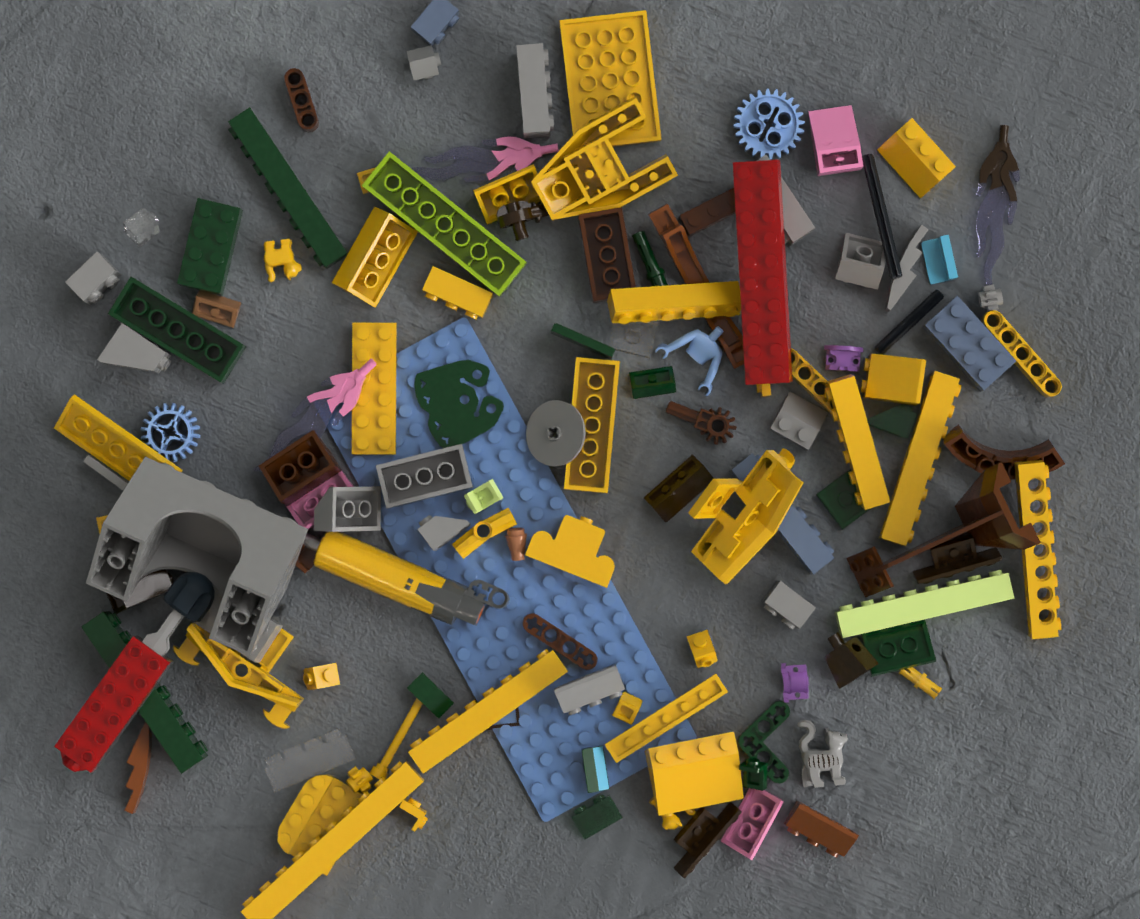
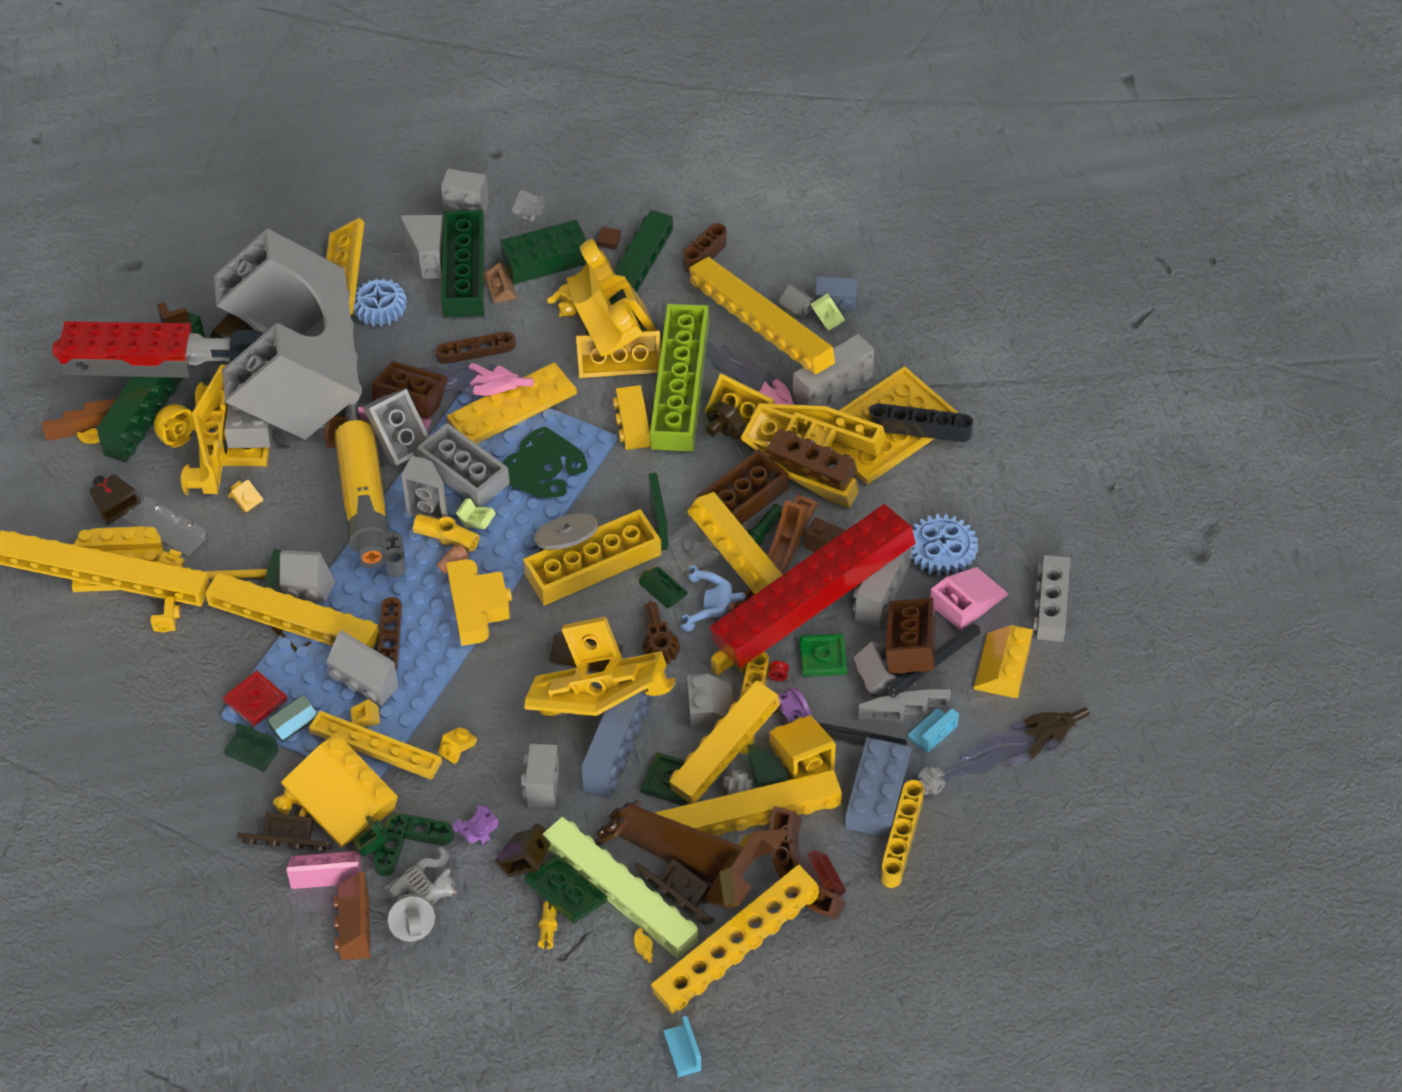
camera: 65 degrees right, 35 degrees down
(94, 638) = (176, 316): none -> reddish brown panel
(159, 769) = (89, 436): none -> yellow piece
(202, 696) = (174, 425): none -> yellow cylinder
(226, 176) = (609, 238): none -> reddish brown tile
(250, 792) = (113, 497): none -> dark brown torso
(276, 375) = (476, 349): none -> reddish brown beam
(298, 240) = (590, 290): none -> yellow piece
(431, 112) = (762, 315): none -> yellow brick
(455, 43) = (827, 312): none -> yellowish green bracket
(459, 681) = (305, 575): none -> light grey slope
(551, 787) = (255, 698): none -> red tile
(643, 45) = (922, 422): none -> black beam
(660, 172) = (817, 468): none -> reddish brown brick
(804, 346) = (778, 671): none -> red bush
(810, 297) = (823, 655): none -> green tile
(852, 785) = (410, 917): none -> light grey tile
(855, 222) = (911, 635): none -> reddish brown brick
(891, 451) = (737, 782): none -> light grey gear
(895, 74) = (1053, 598): none -> light grey brick
(983, 617) = (643, 945): none -> yellow piece
(1017, 437) = (827, 872): none -> clear red tile
(1093, 646) = (683, 1048): none -> medium azure panel

